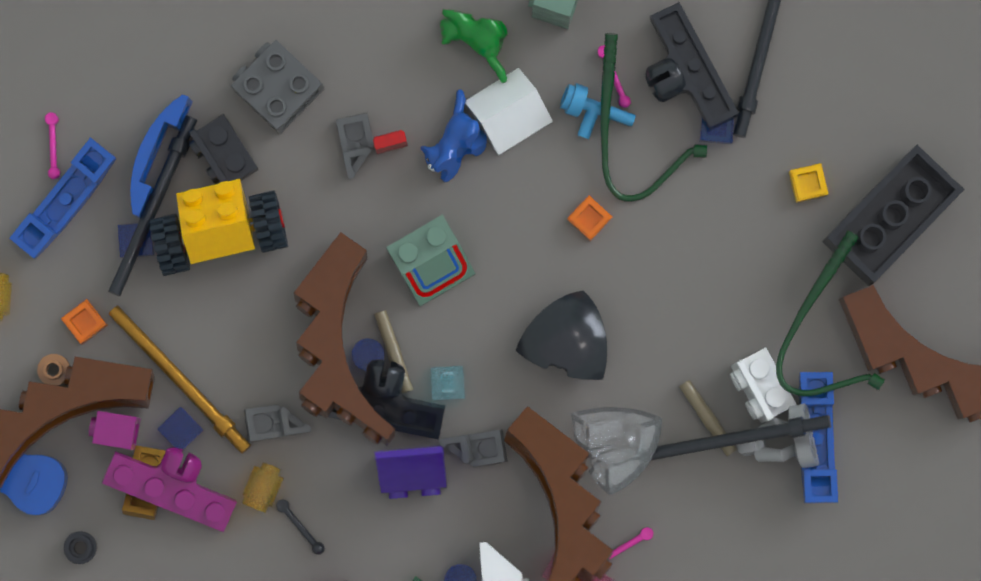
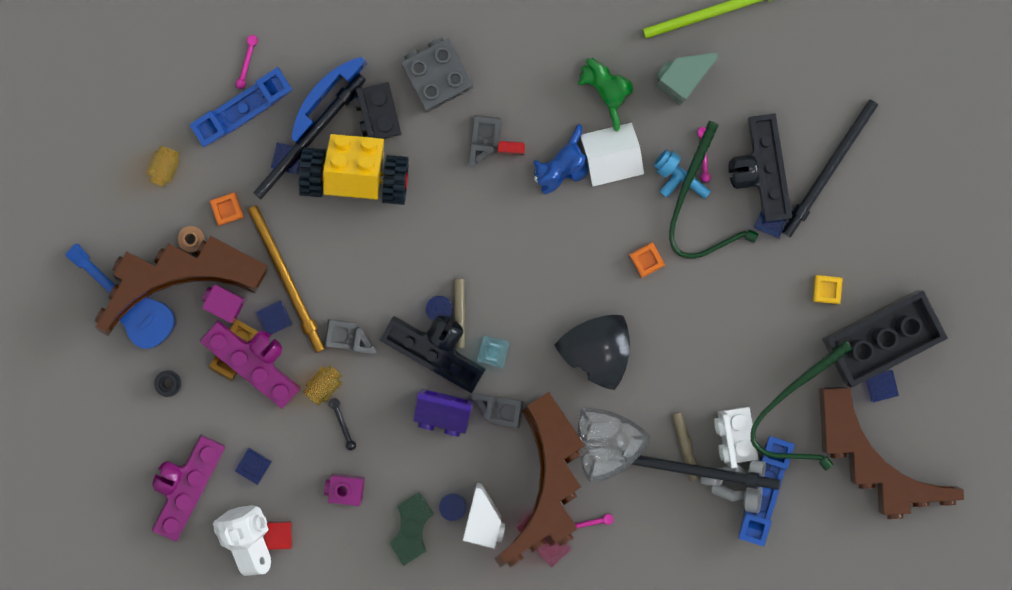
camera: 30 degrees right, 5 degrees up
(332, 384) = (403, 325): reddish brown arch -> none
(431, 260) = (512, 252): sand green slope -> none
(910, 272) = (882, 386): none -> clear blue tile

